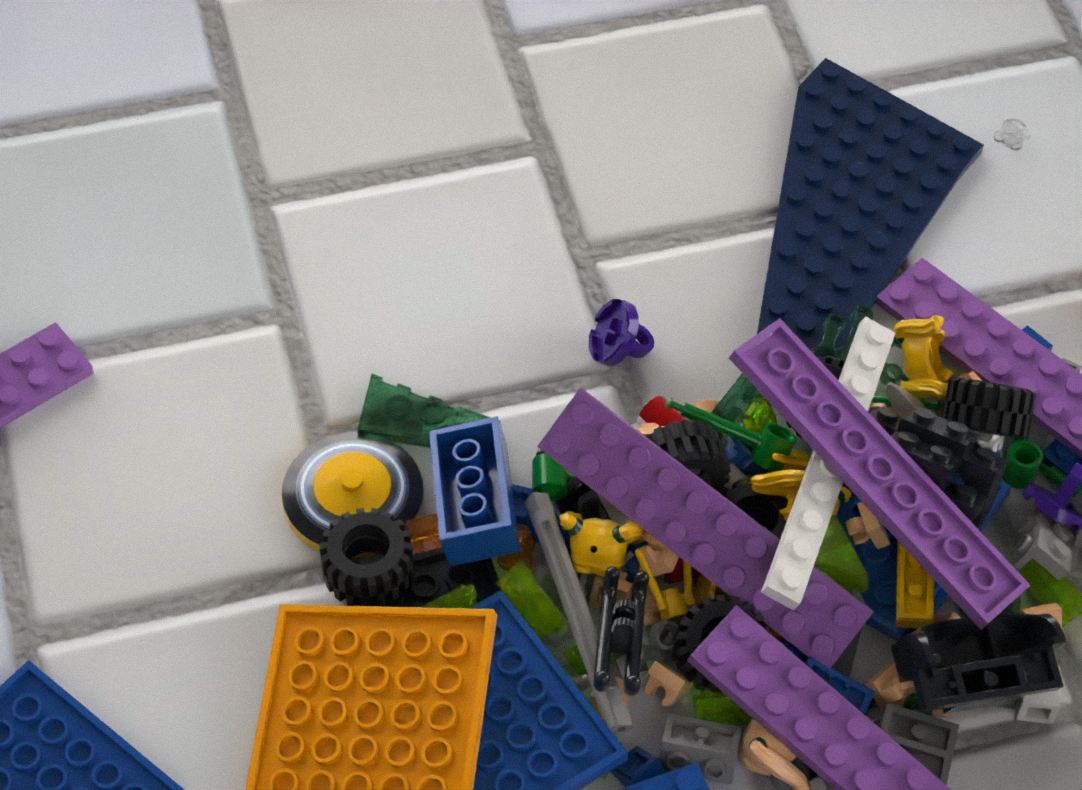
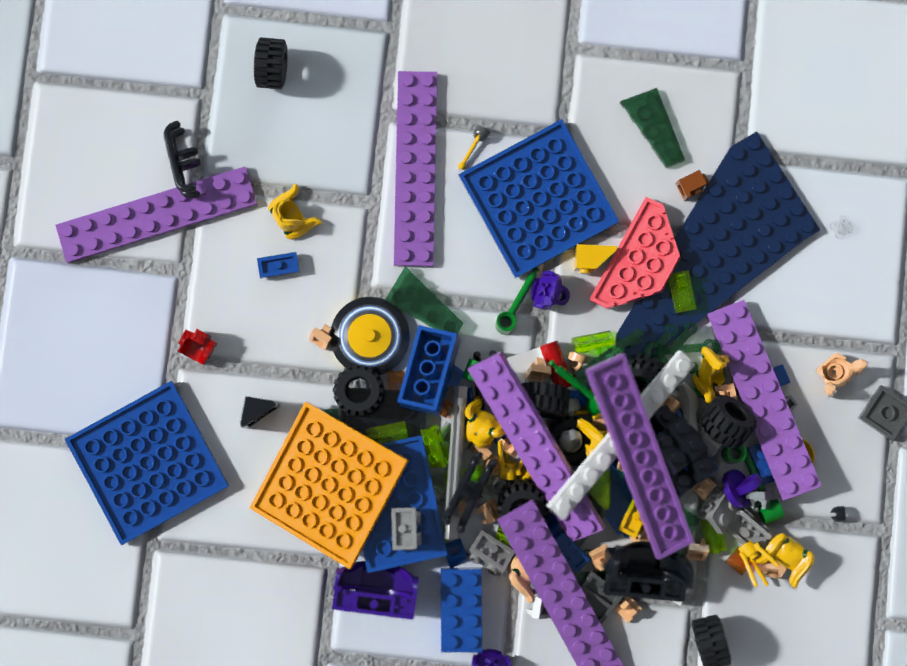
camera: 15 degrees right, 30 degrees up
(52, 168) = (270, 63): none -> black tyre
(57, 591) = (196, 345): none -> red hair
(156, 368) = (289, 216): none -> yellow hair
(159, 438) = (278, 265): none -> blue plate
(203, 646) = (255, 410): none -> black slope
(270, 516) = (321, 337): none -> light nougat tile
(336, 254) = (415, 169): none -> medium lavender plate
(417, 175) = (480, 134): none -> hinge
(537, 728) = (405, 528): none -> light grey bracket
(544, 230) = (538, 198): none -> blue plate
(566, 388) = (510, 314): none -> green piece
(662, 274) = (590, 257): none -> yellow slope
(676, 95) = (652, 120): none -> clear green wing
(710, 390) = (593, 341): none -> clear neon green plate
(740, 256) = (641, 260): none -> coral plate
(756, 506) = (570, 441): none -> light grey plate
(765, 144) = (692, 184): none -> dark orange brick
(823, 273) = (682, 292): none -> clear neon green plate
(975, 756) = (627, 608): none -> light nougat tile
(1002, 530) = (704, 488): none -> light nougat tile

